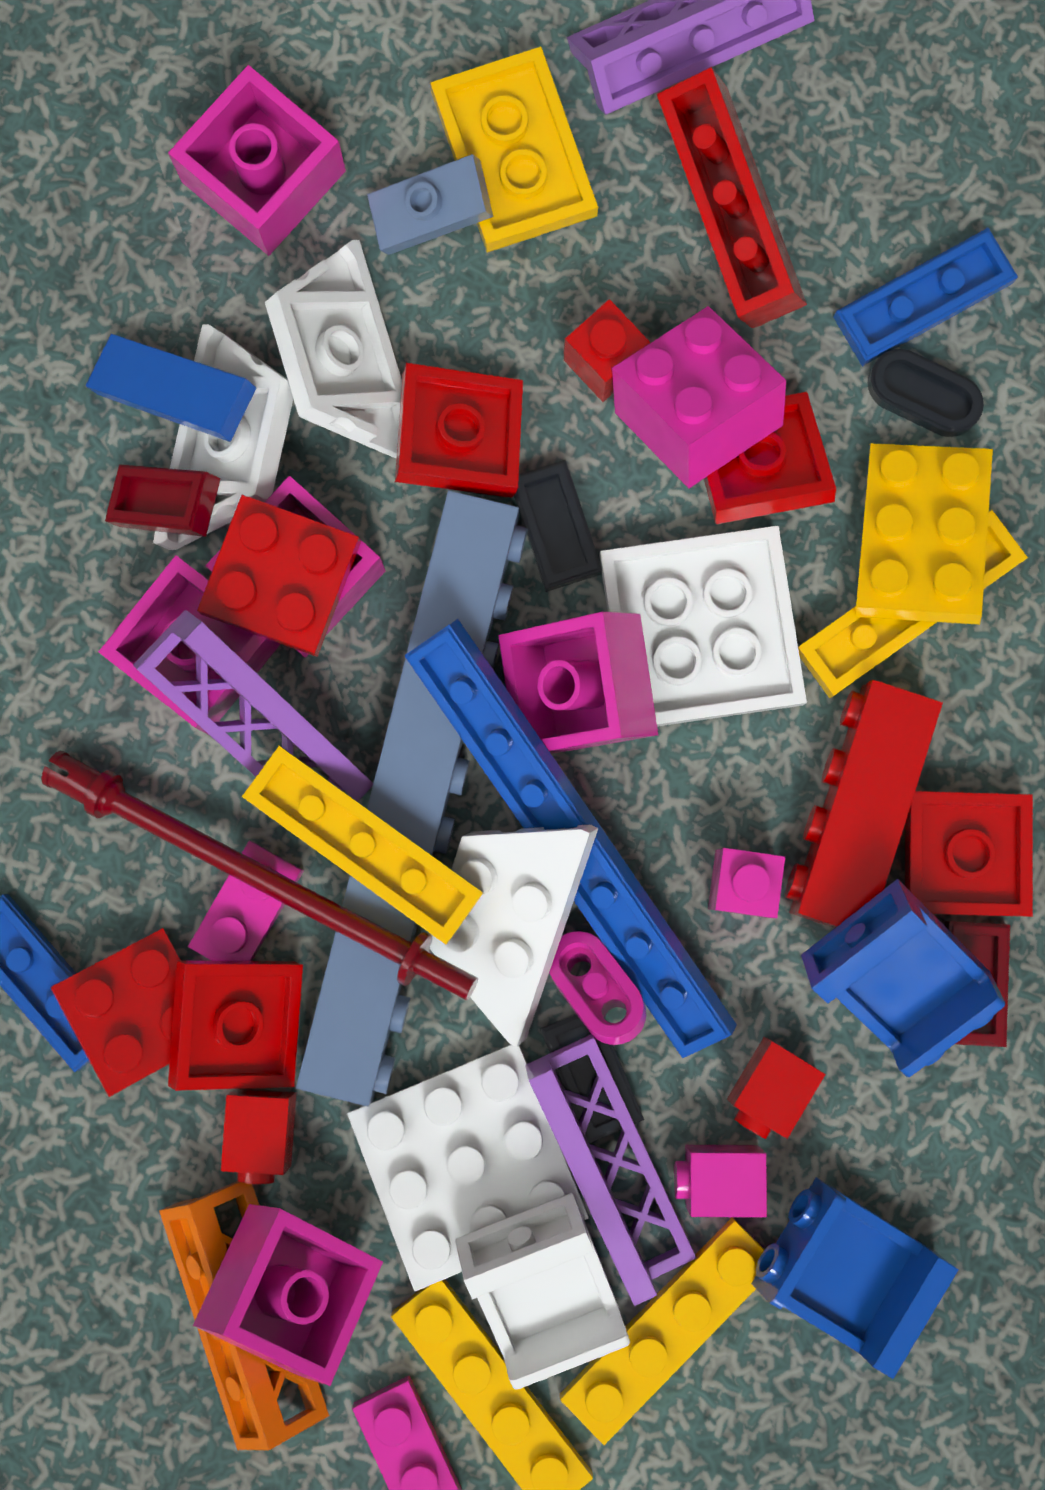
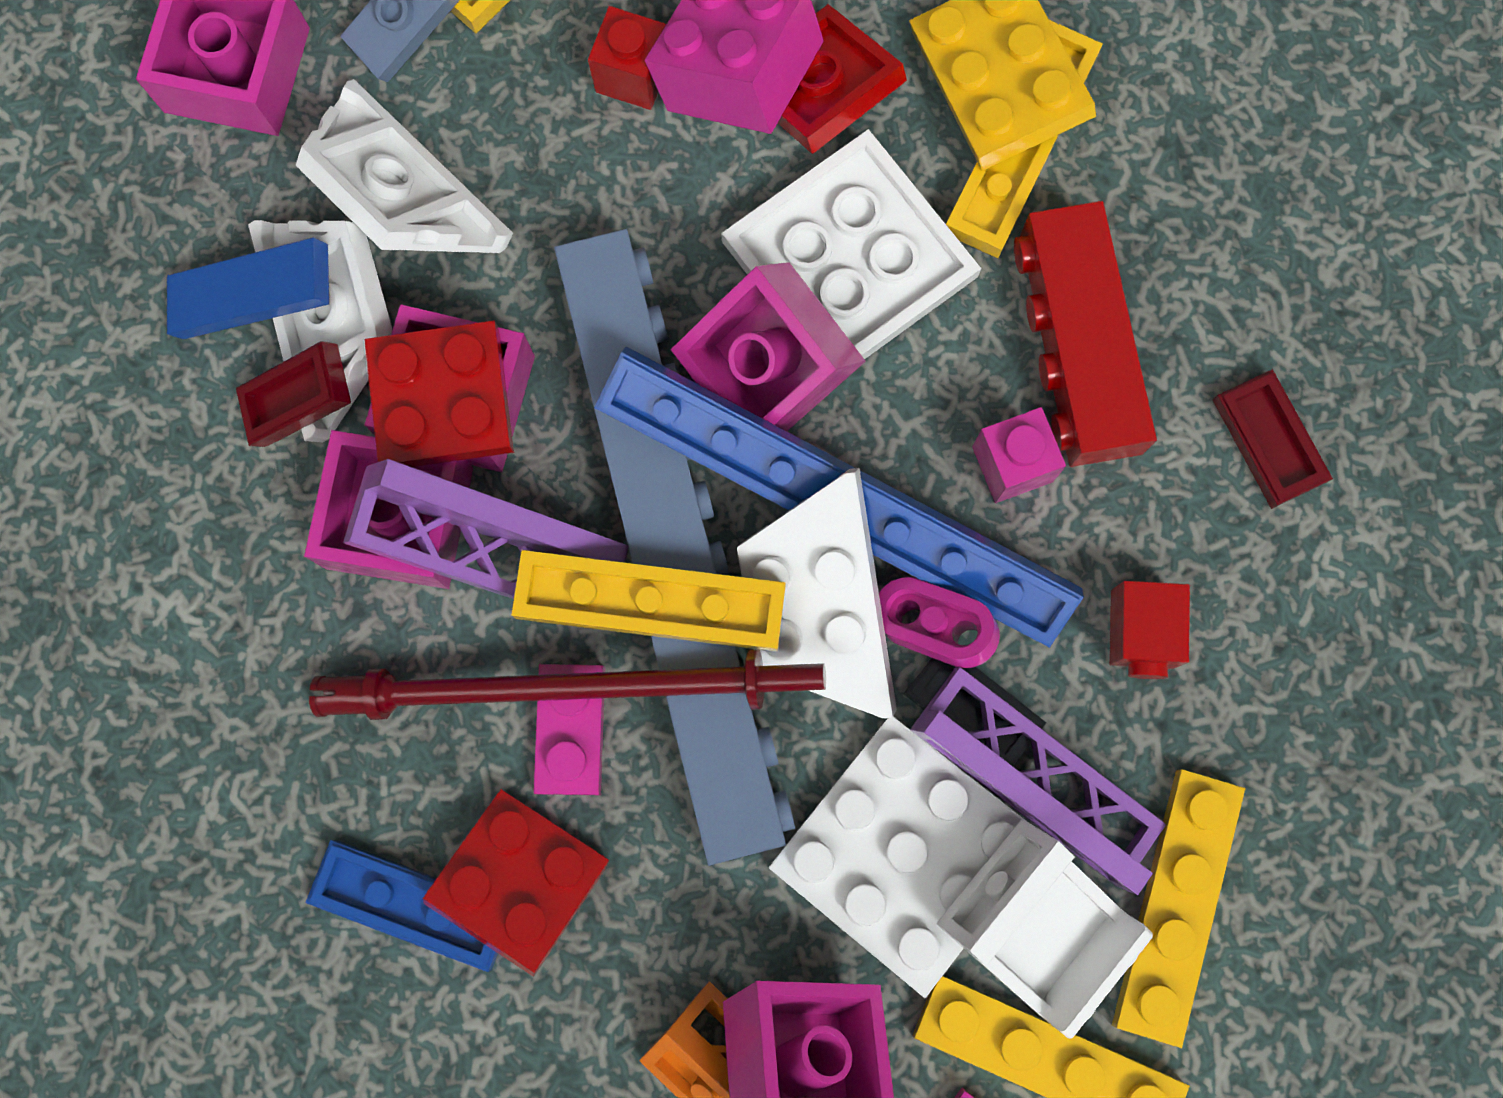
camera: 25 degrees left, 5 degrees down
(235, 1024) = (617, 839): red plate -> none
(258, 1134) = (695, 934): red brick -> none
(459, 430) = (535, 193): red plate -> none
(556, 526) = (670, 234): black tile -> none
(722, 1180) = (1151, 737): dark pink brick -> none
(853, 1276) = (1320, 758): blue panel -> none
(904, 978) = (1210, 459): blue panel -> none
(971, 853) = (1202, 326): red plate -> none

